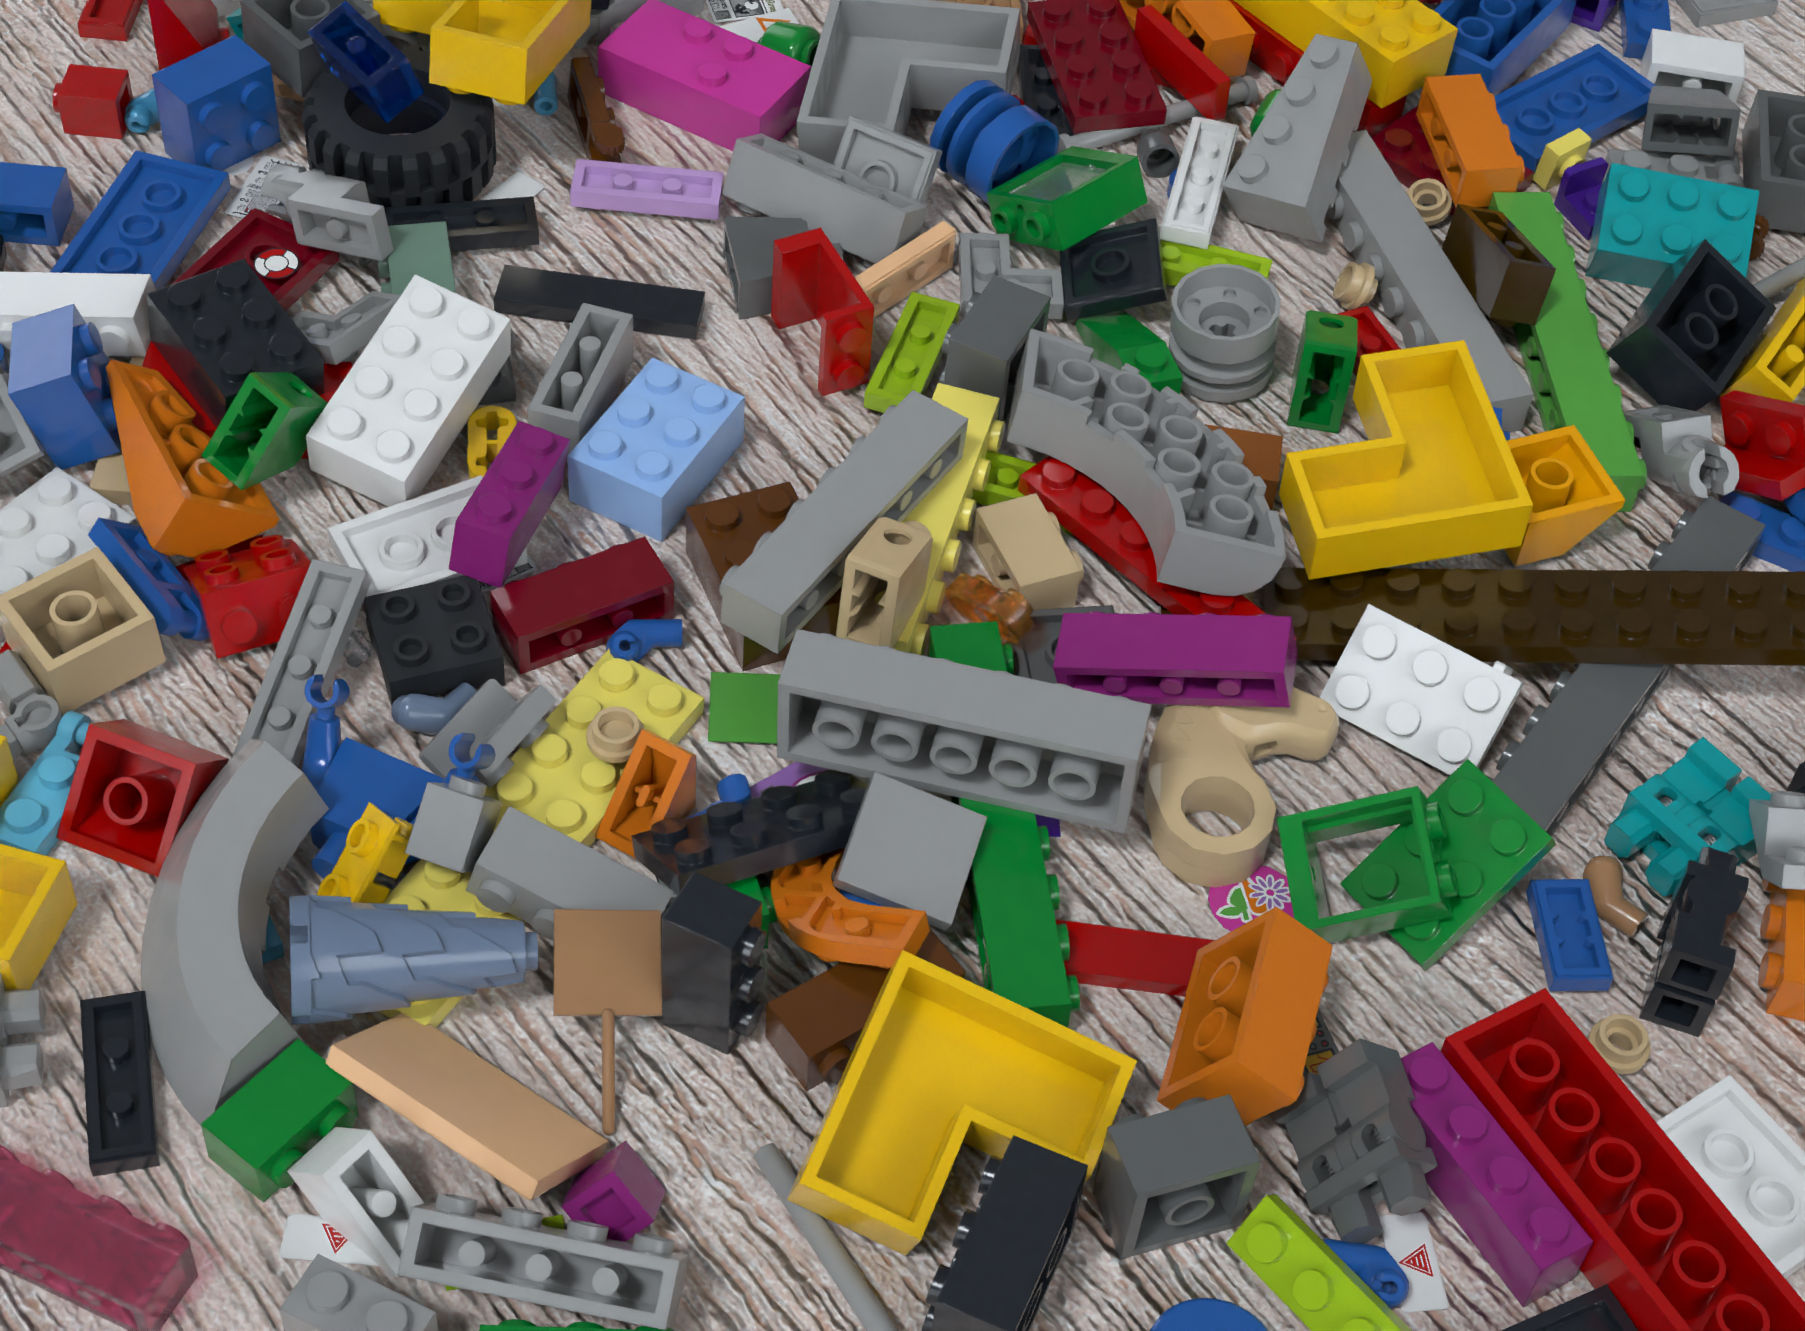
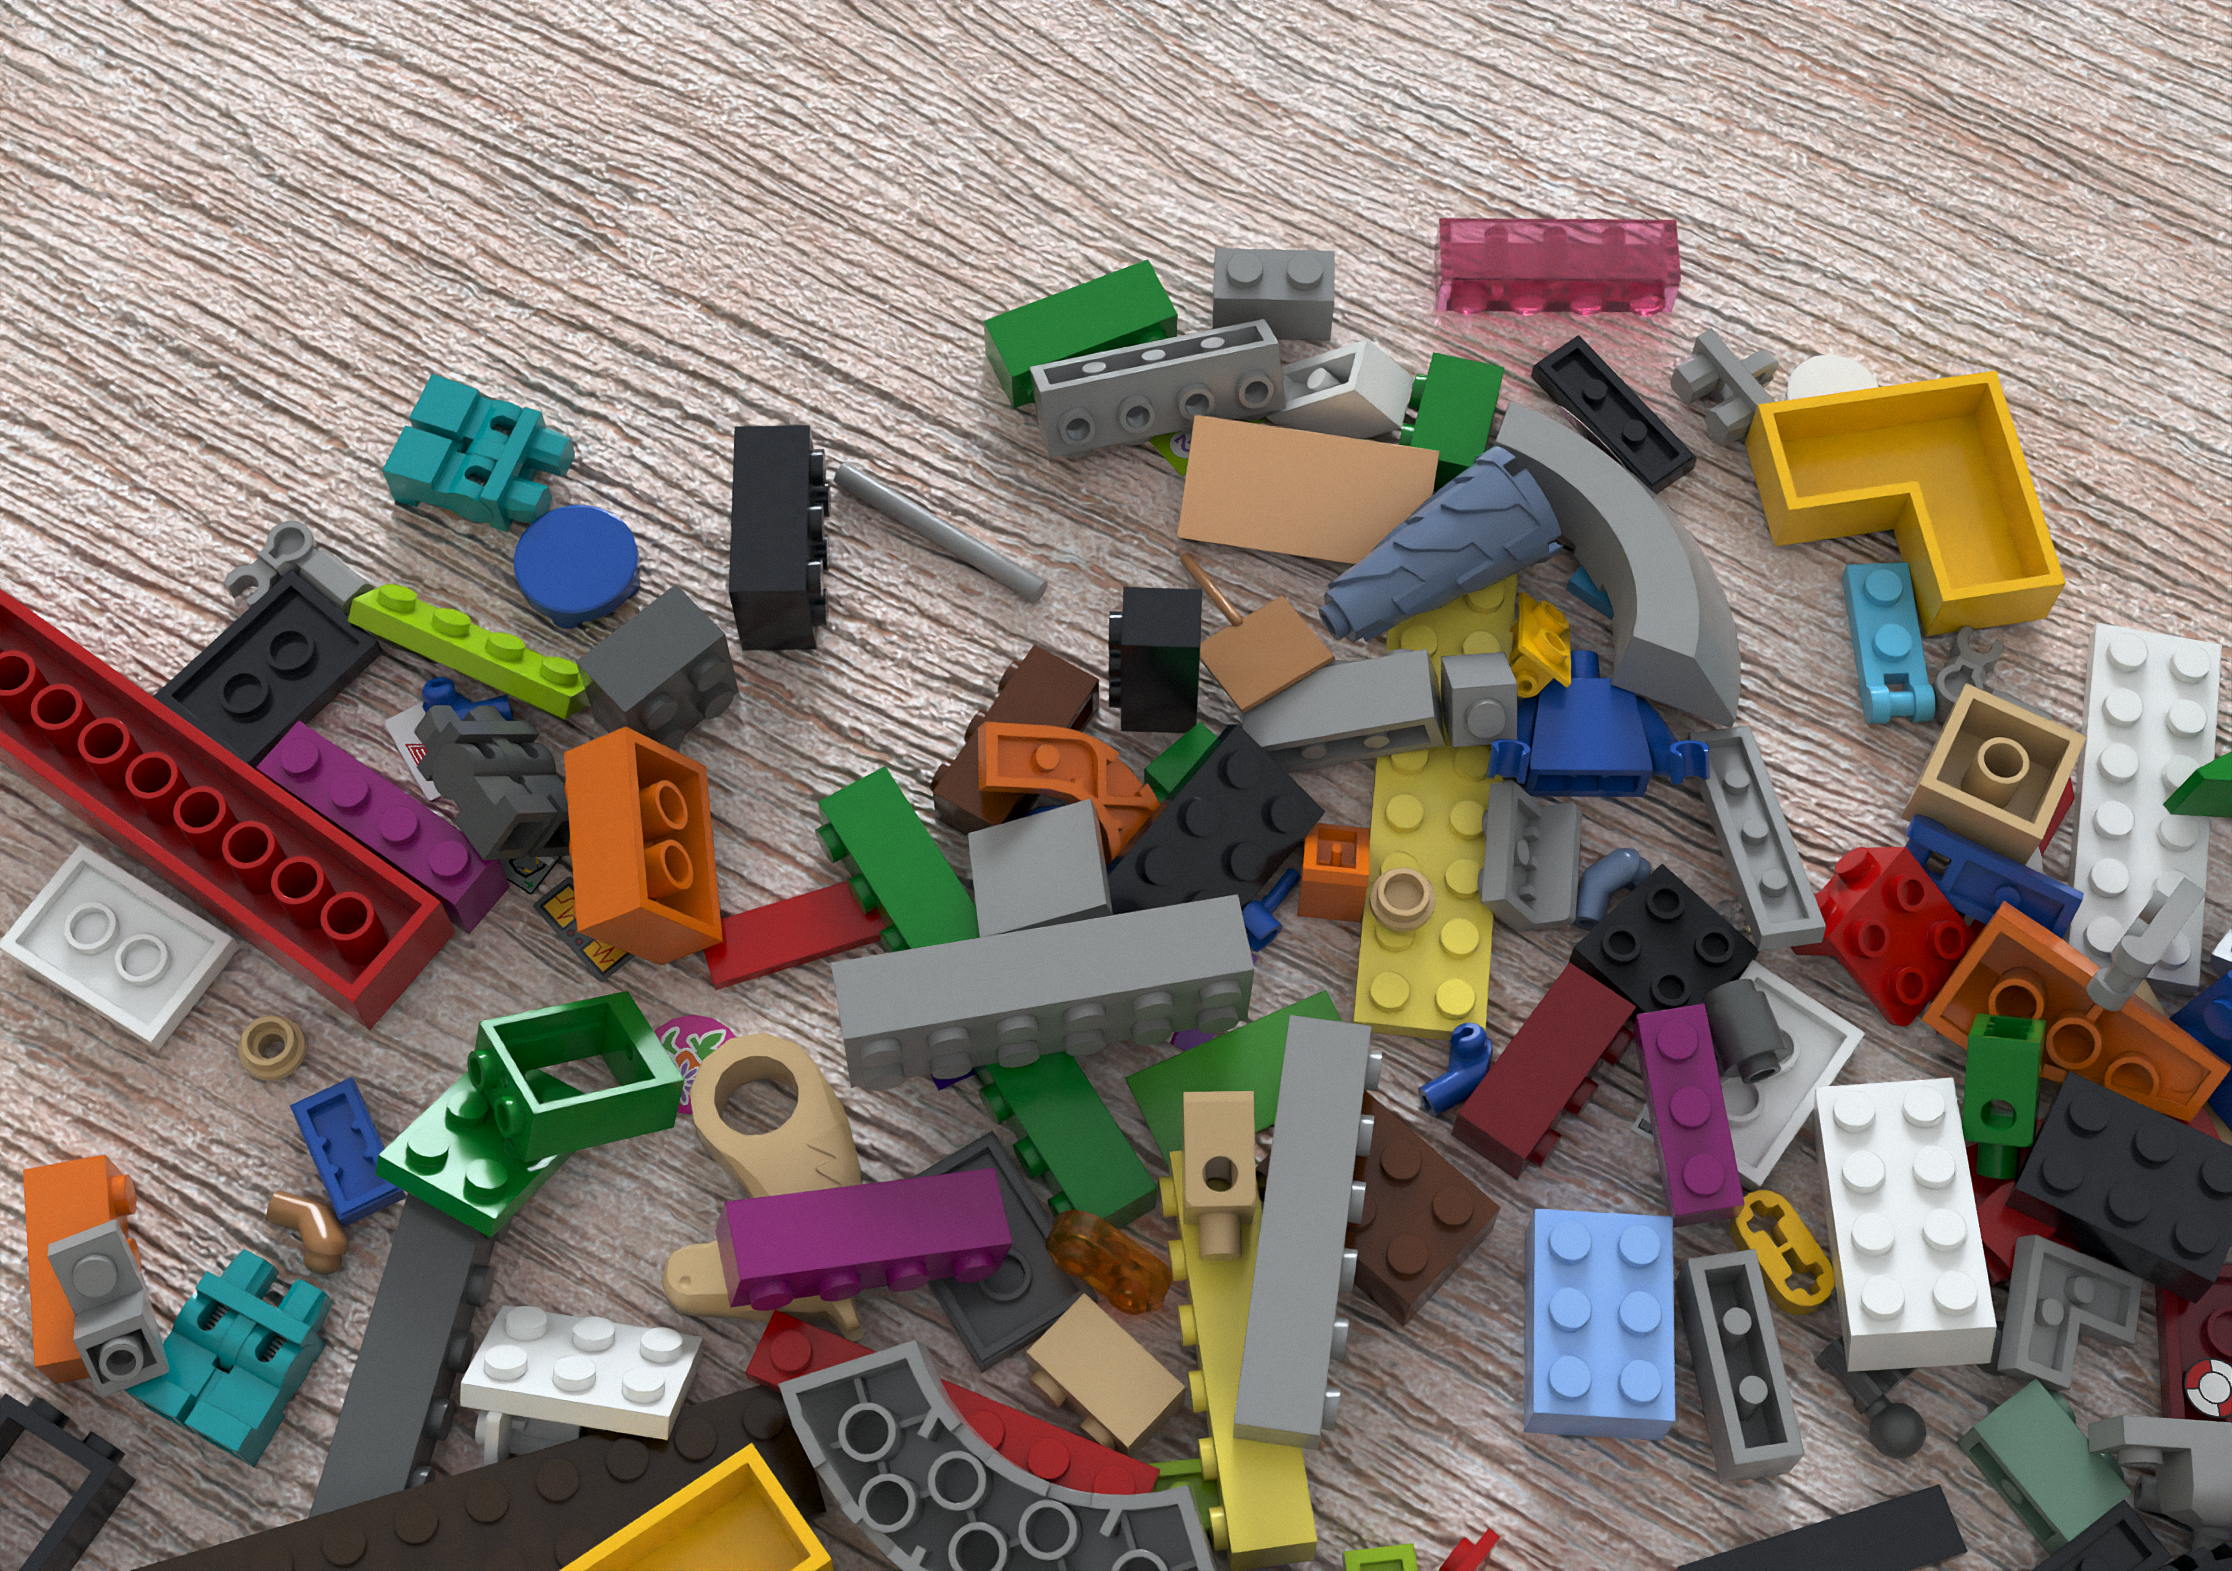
camera: 160 degrees right, 15 degrees up
(93, 440) = (2143, 945): none -> light grey plate
(134, 792) = (1805, 660): red slope -> none
(172, 1036) = (1587, 433): none -> sticker
(423, 540) = (1744, 1031): none -> dark grey brick
(616, 1194) = (1139, 484): magenta panel -> none
(943, 1070) = (894, 672): yellow piece -> none
(1691, 960) = (204, 1166): black hips -> none

